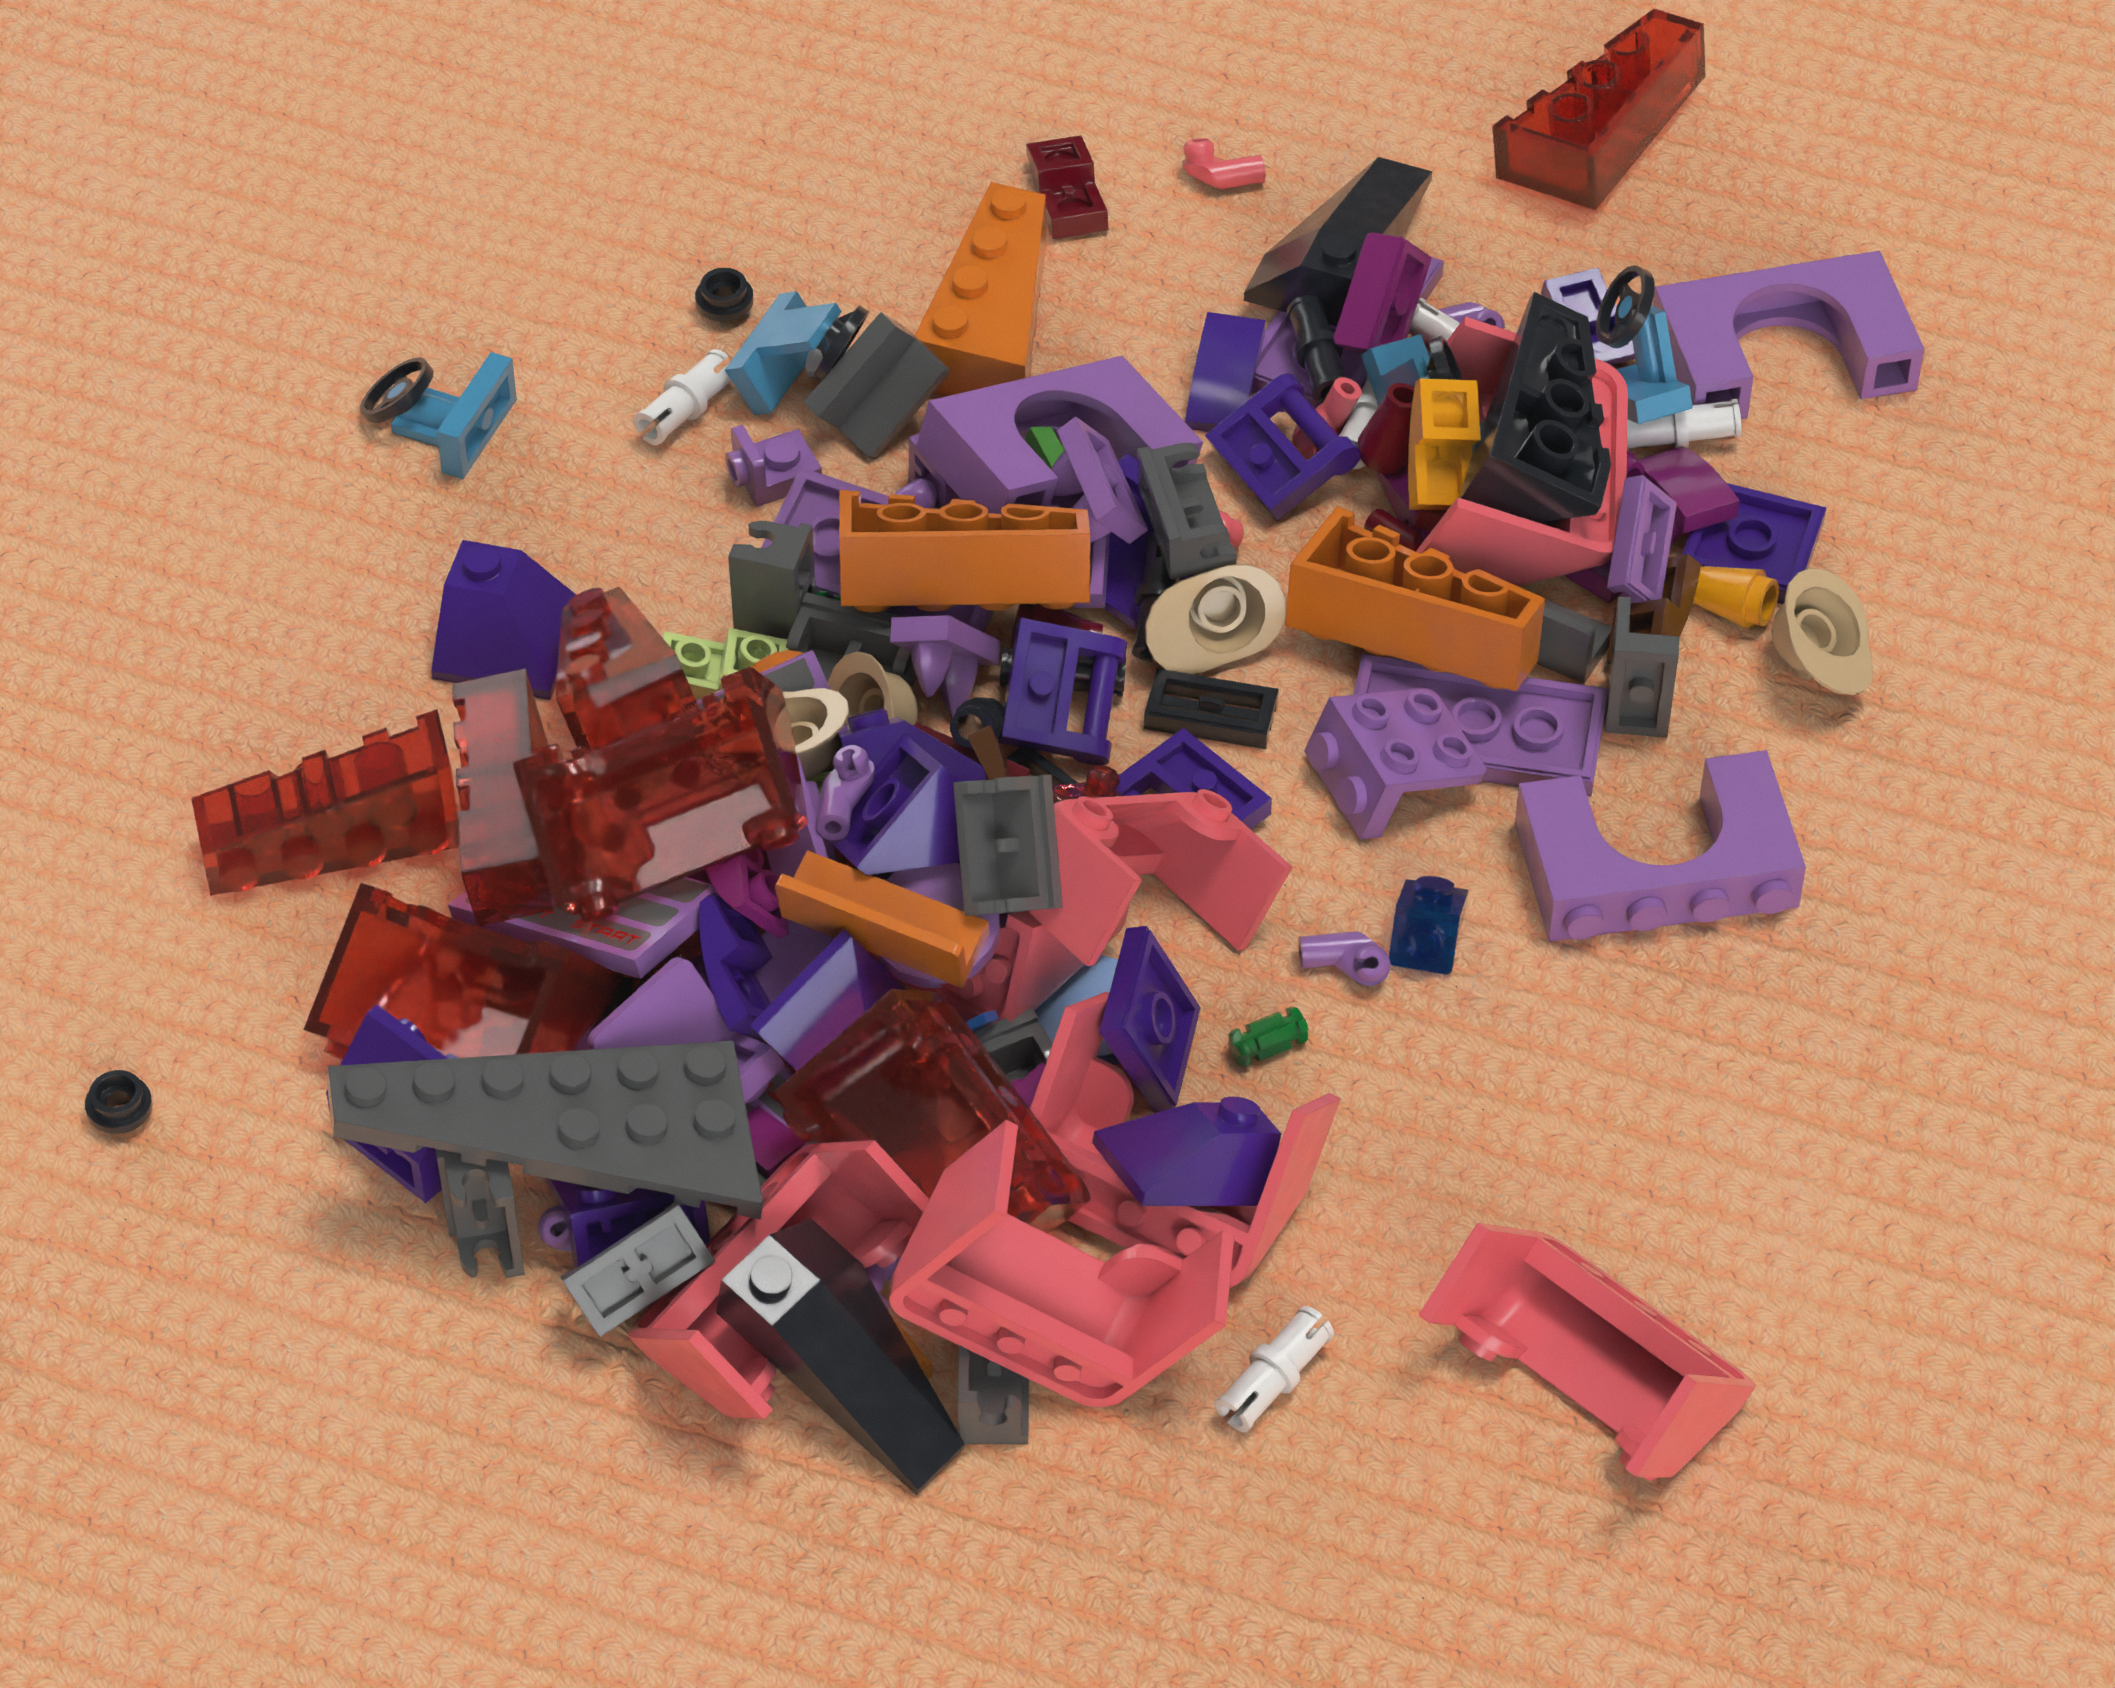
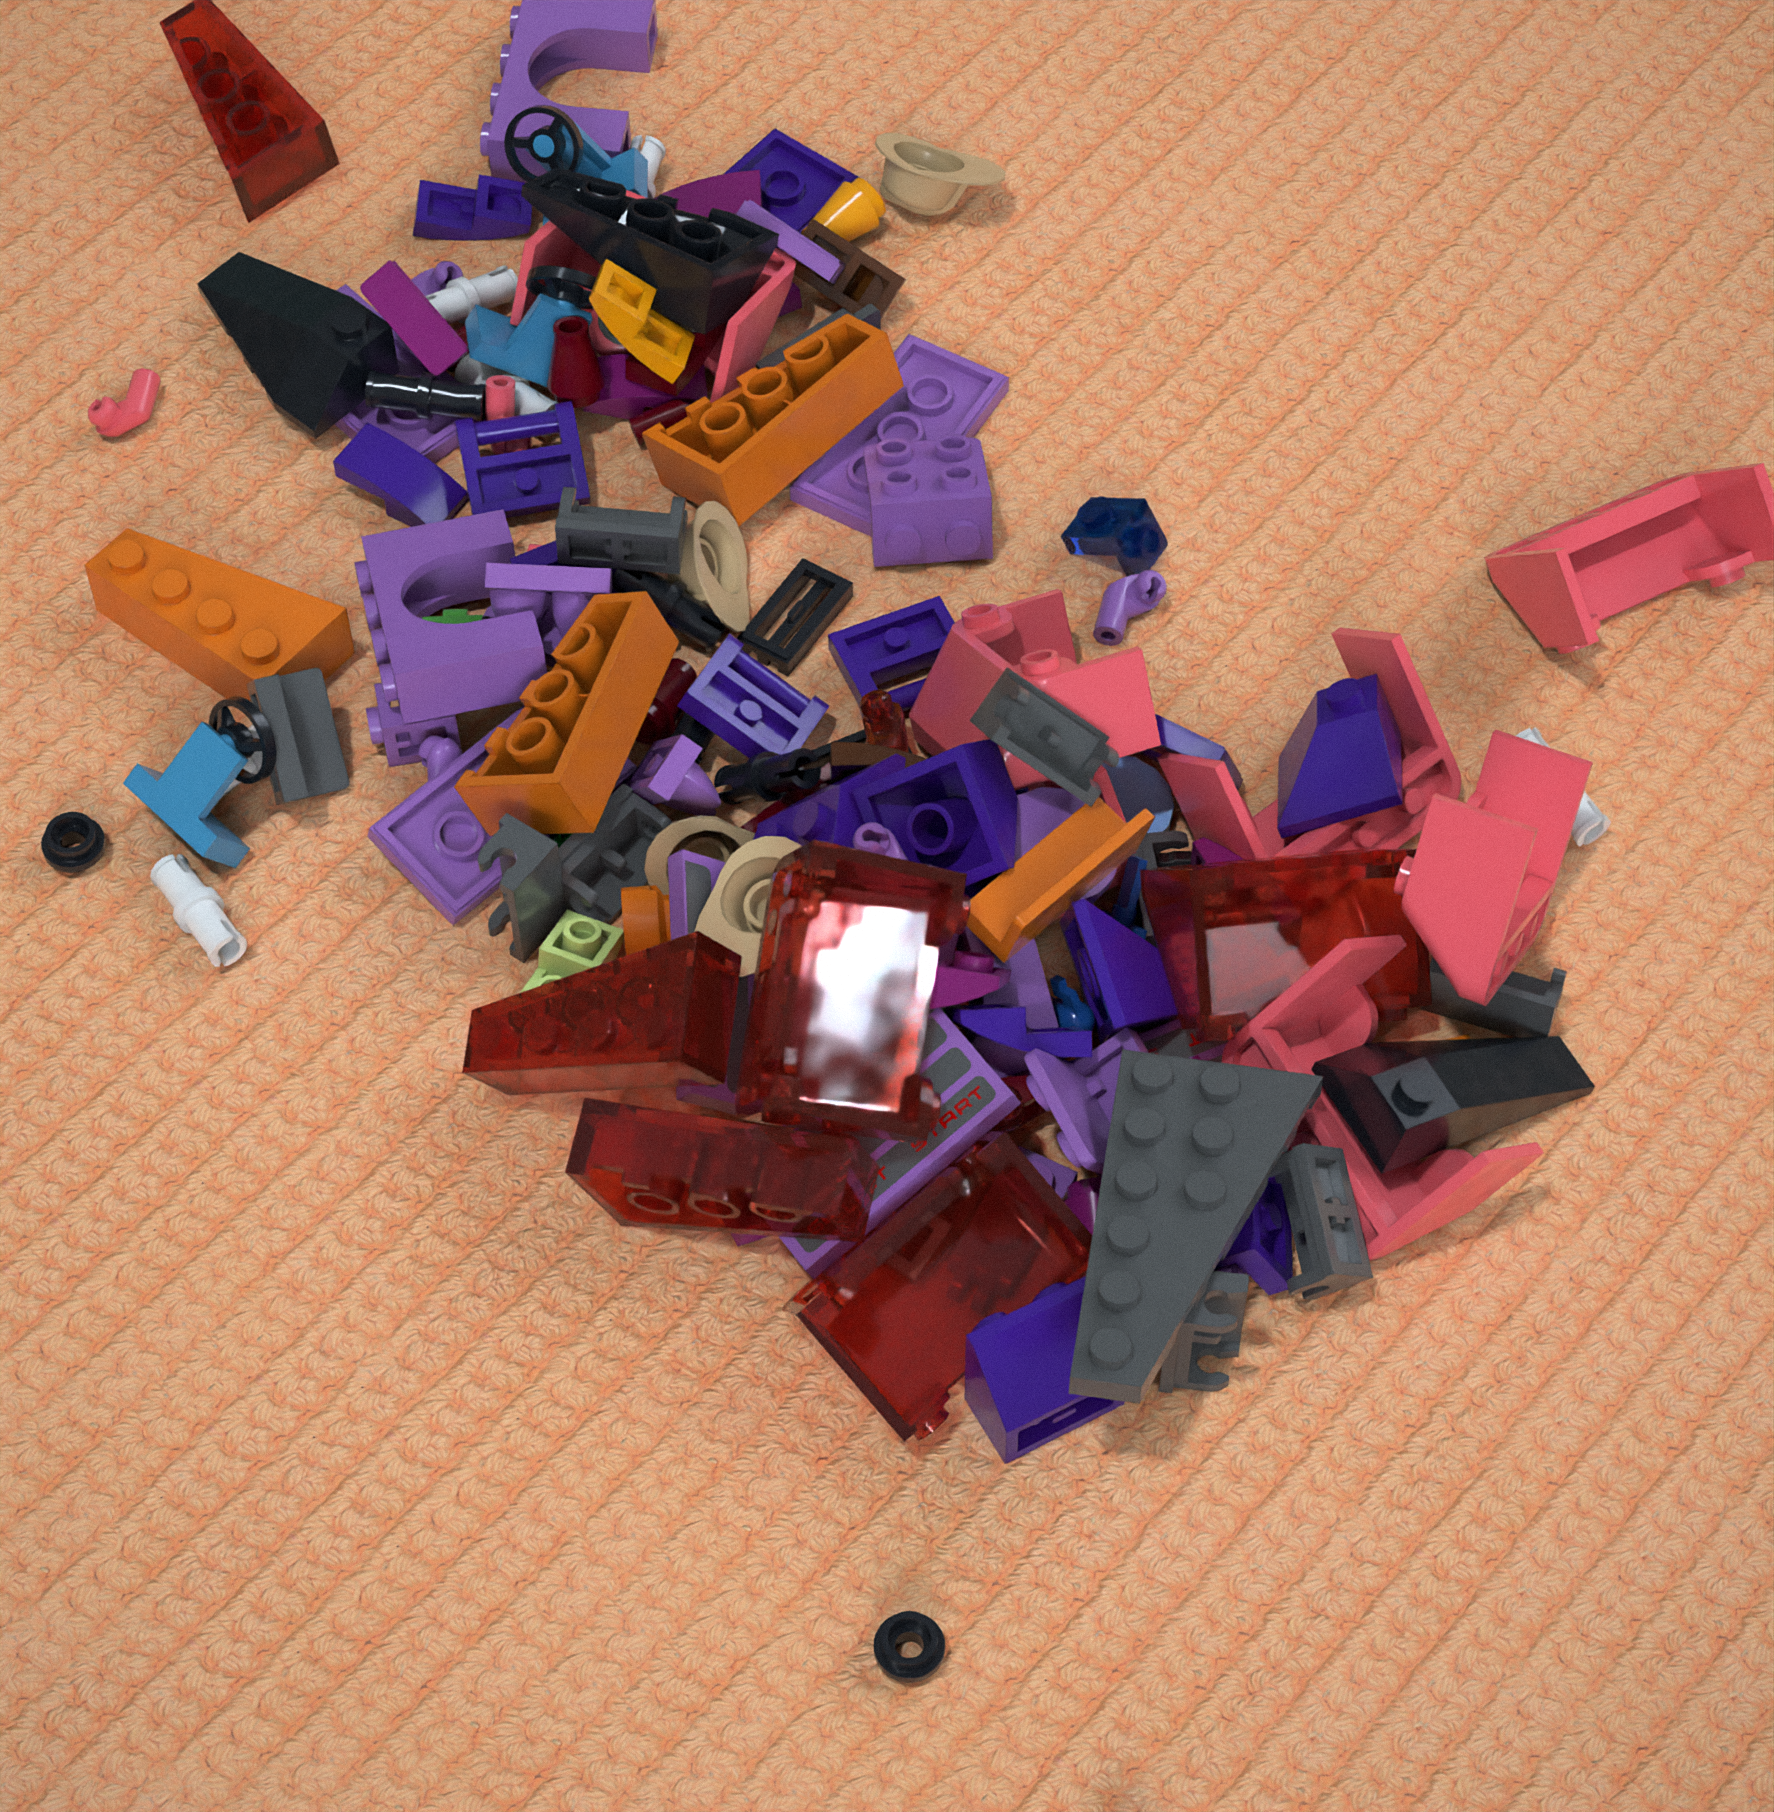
camera: 70 degrees left, 5 degrees up
(332, 812) = (630, 1350): clear red wedge -> none
(452, 423) = (106, 1130): dark azure piece -> none
(499, 618) = (427, 1147): dark purple slope -> none
(769, 465) = (325, 864): medium lavender bracket -> none
(1067, 177) = (70, 530): dark red slope -> none
(1268, 1036) = (1193, 686): green piece -> none
(1595, 890) = (1123, 413): medium lavender arch -> none
(1640, 679) = (925, 297): dark grey panel -> none

